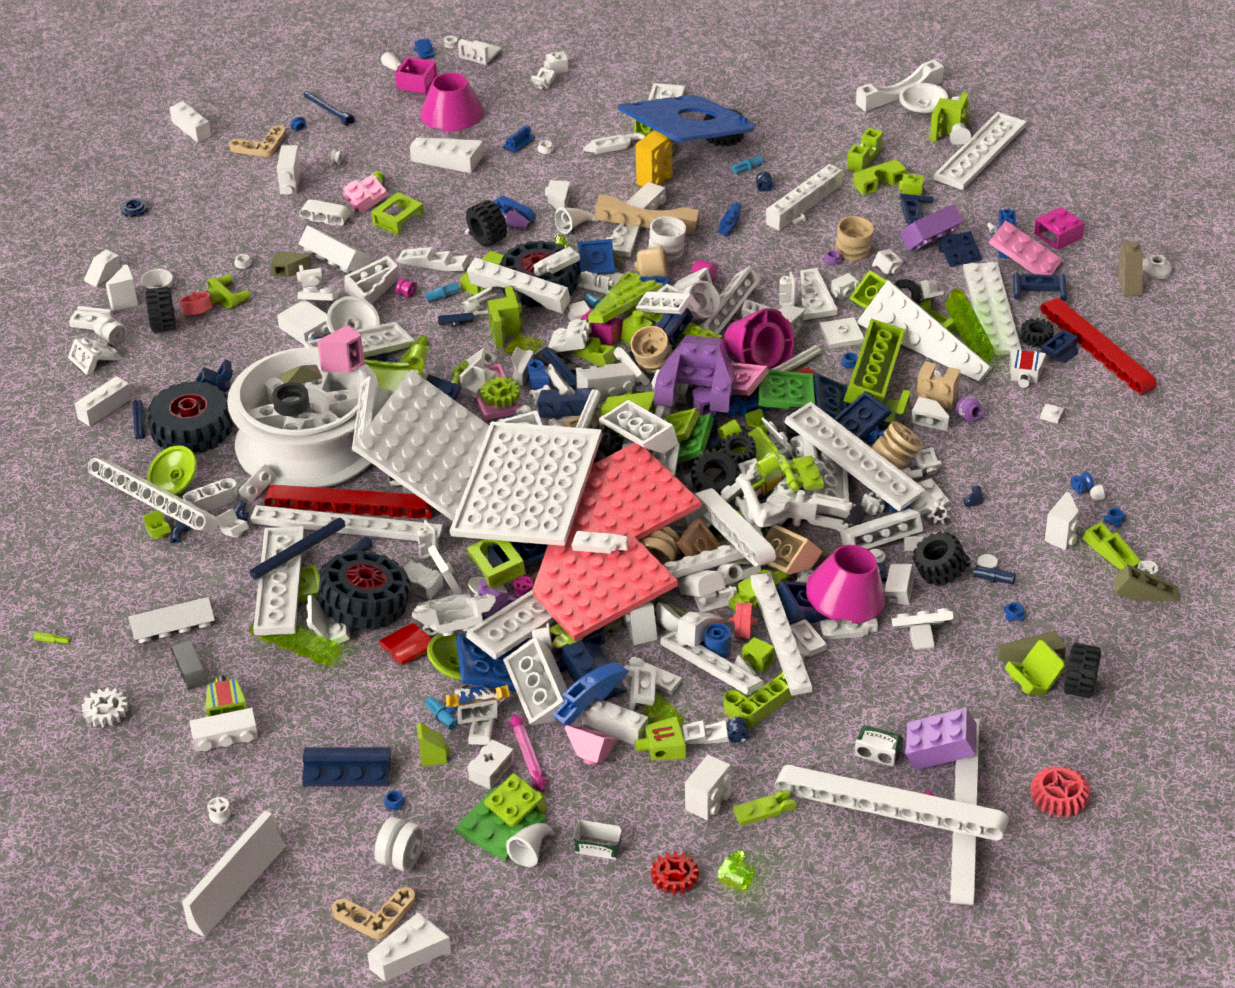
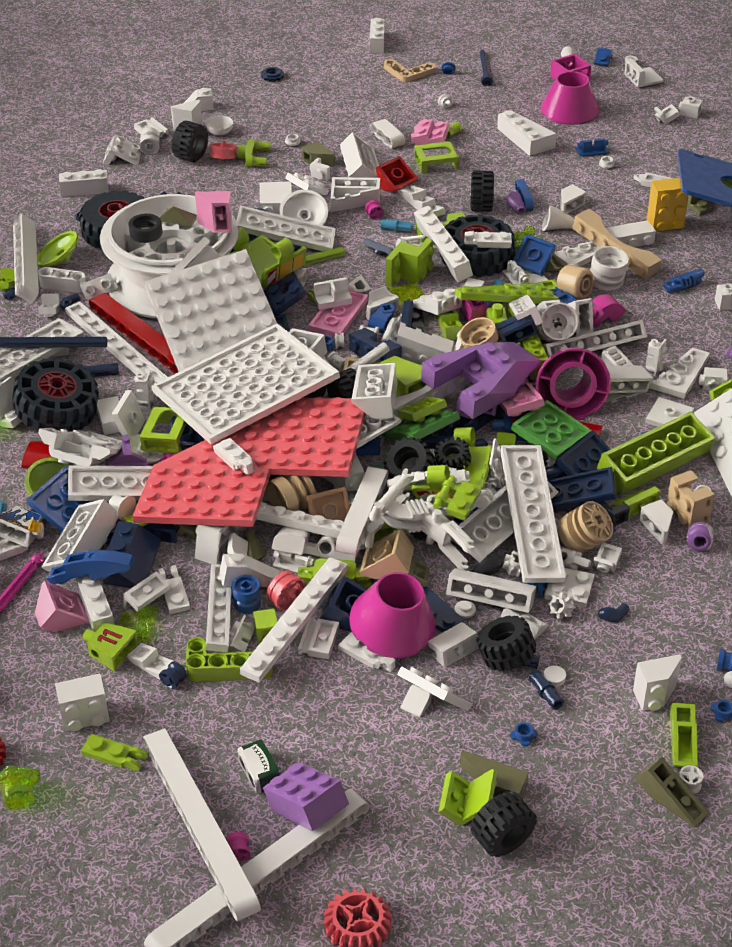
camera: 40 degrees right, 0 degrees up
(288, 169) = (395, 92): white brick -> none
(389, 244) = (395, 175): none -> red slope
(500, 392) = (334, 313): lime gear -> none
(799, 359) = (600, 416): white axle -> none

